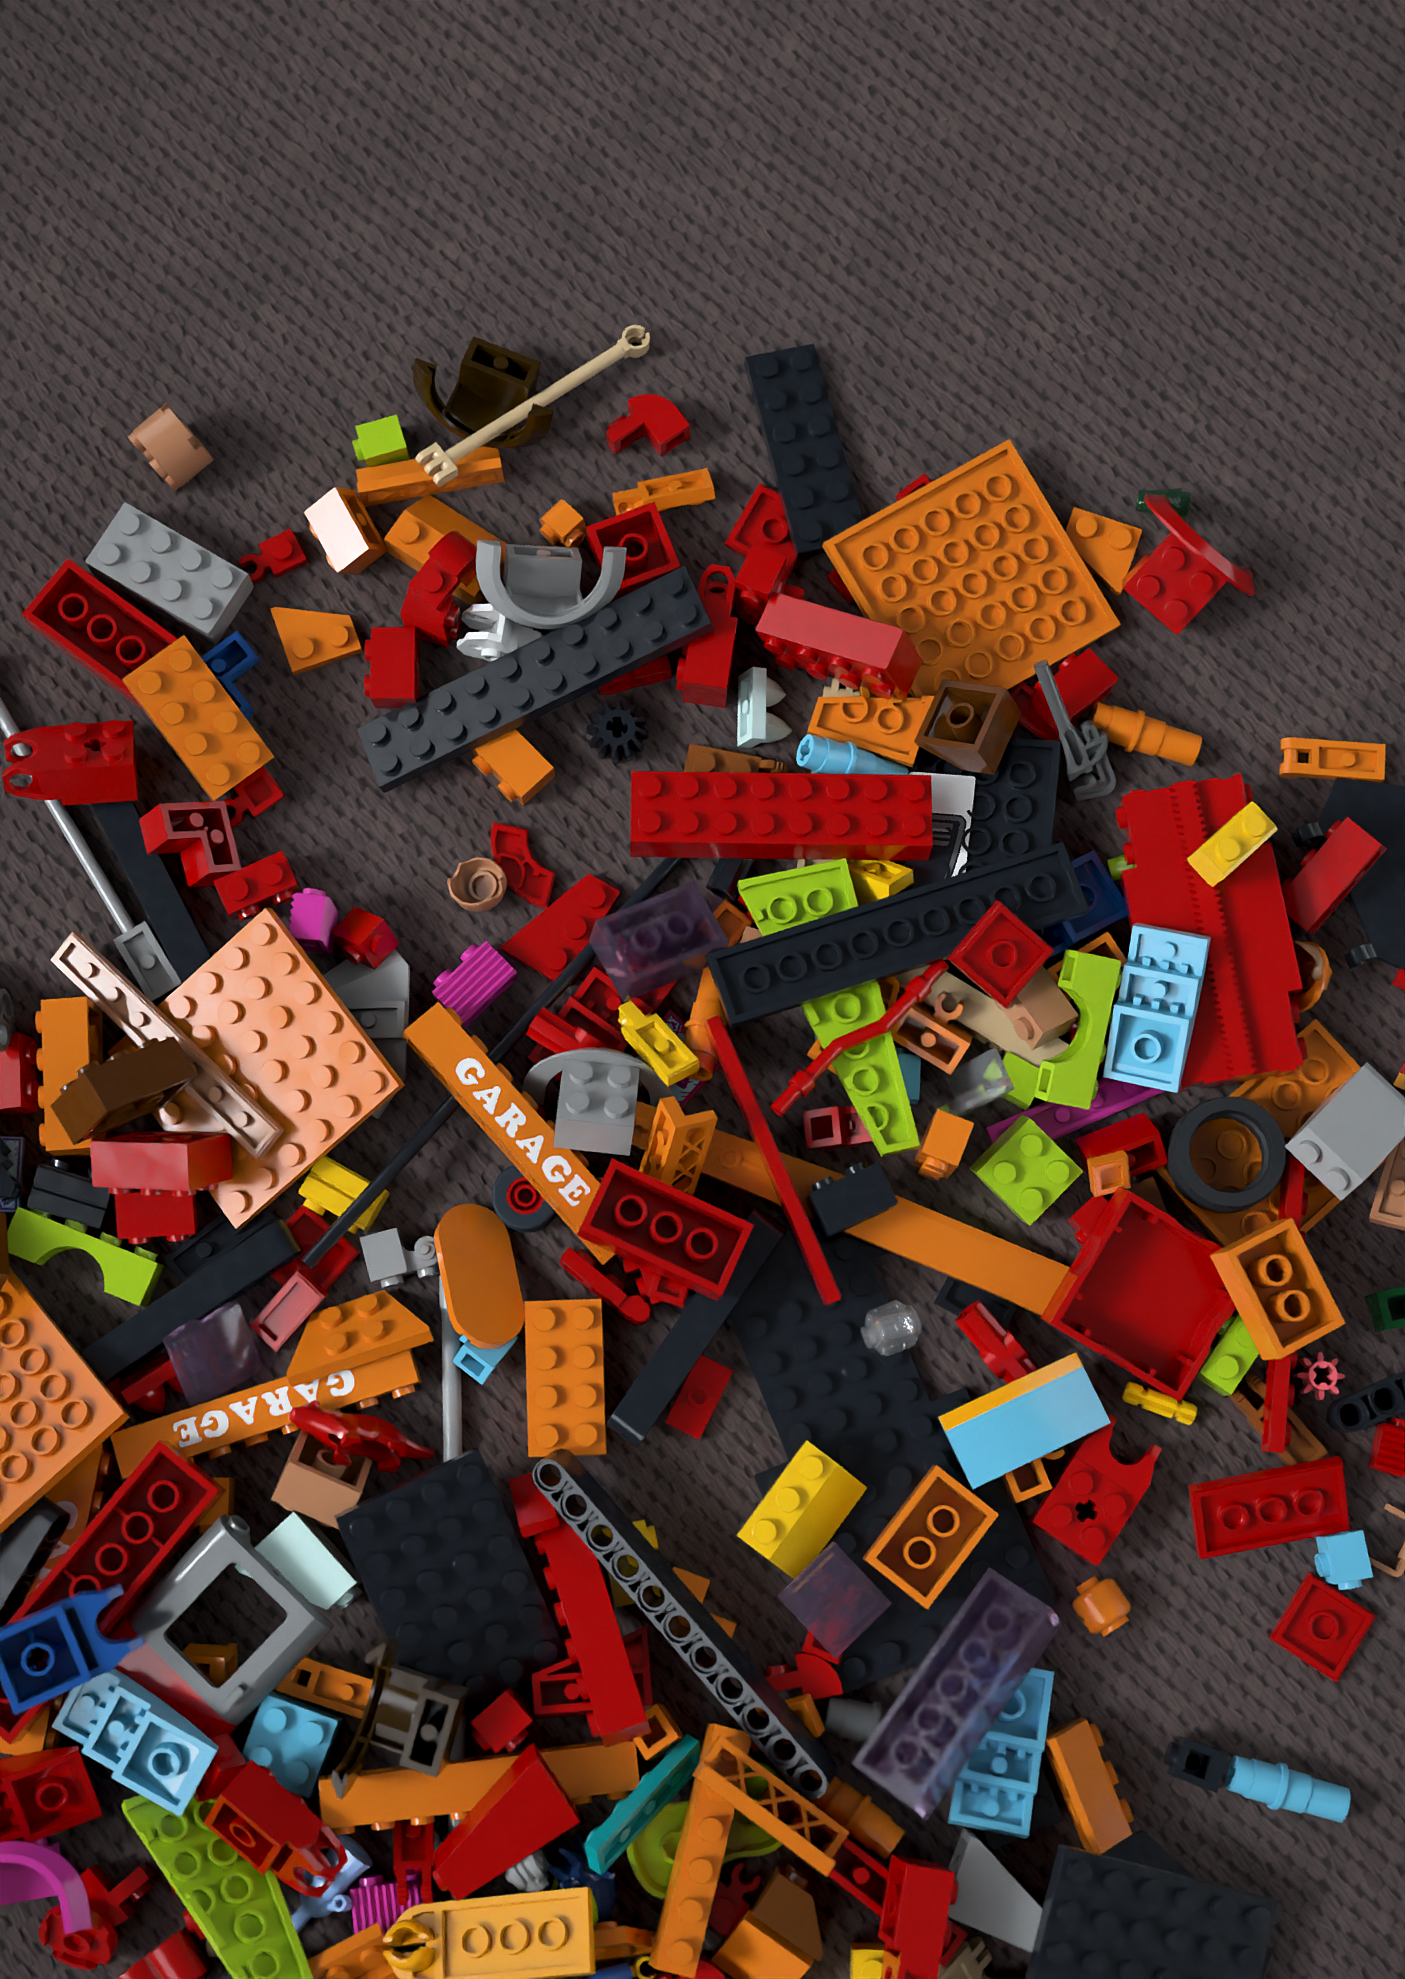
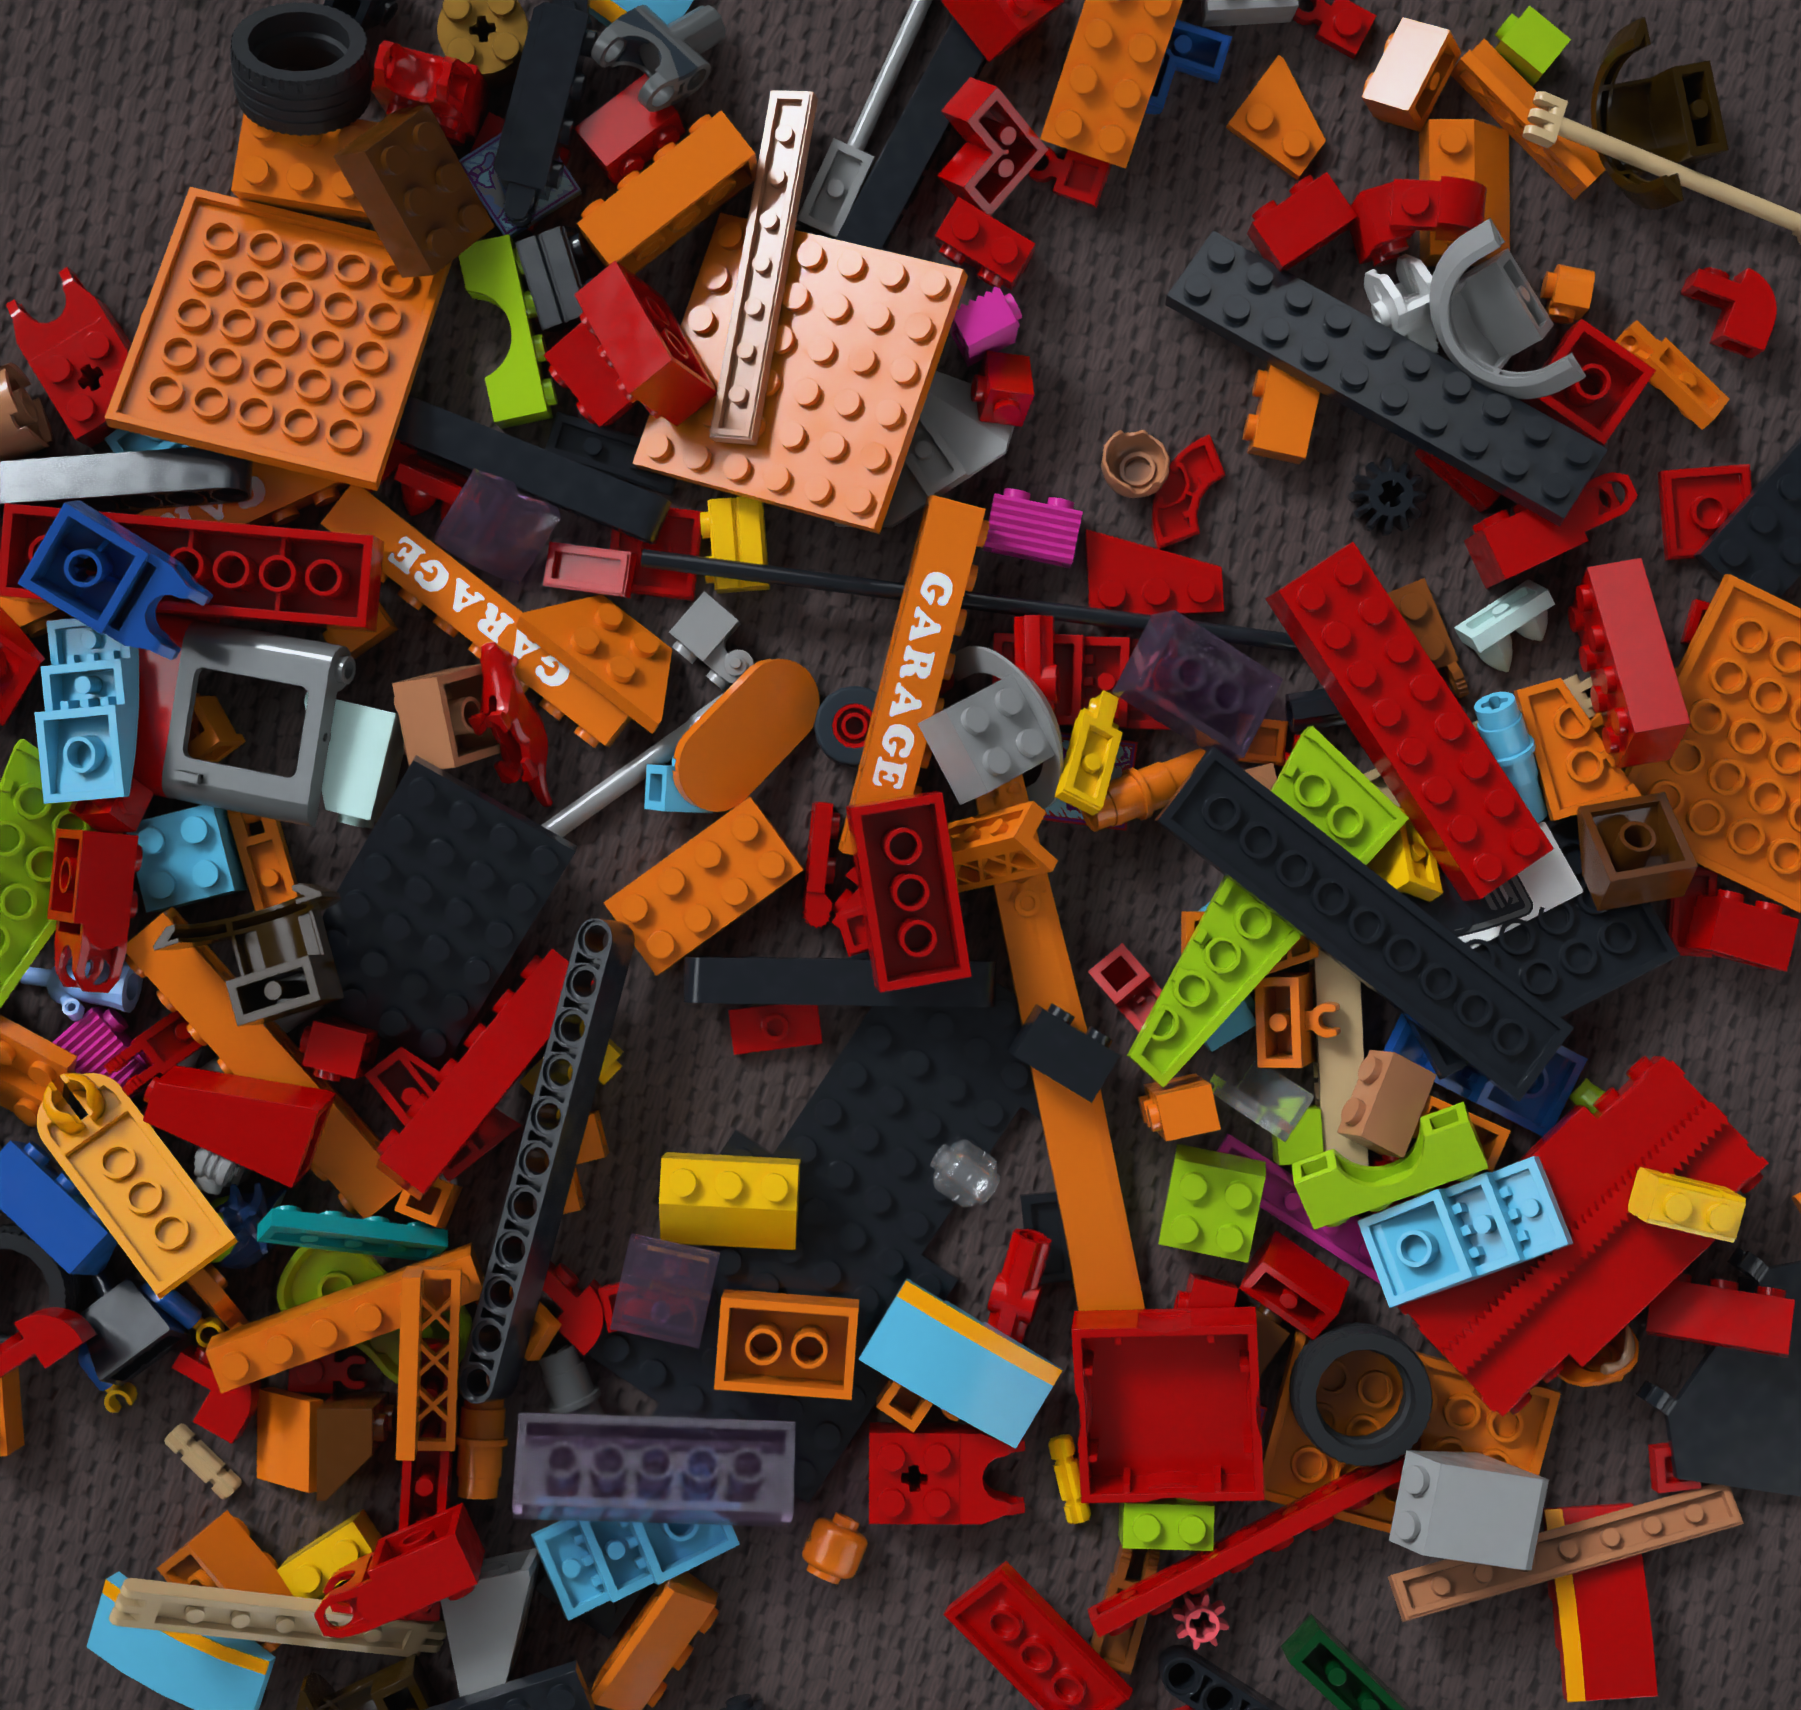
camera: 60 degrees right, 10 degrees up
(122, 1088) = (686, 255): reddish brown brick -> none
(532, 1508) = (555, 940): red tile -> none
(757, 579) = (1643, 533): red brick -> none
(772, 1160) = (1051, 948): red tile -> none
(804, 1080) = (1149, 930): red bar -> none
(1000, 954) = (1413, 1042): red tile -> none
(1079, 748) = (1684, 977): dark grey piece -> none
(1109, 1173) = (1263, 1289): orange tile -> none
(1145, 734) = (1744, 1032): orange piece -> none
(1277, 1289) = (1255, 1535): orange brick -> none

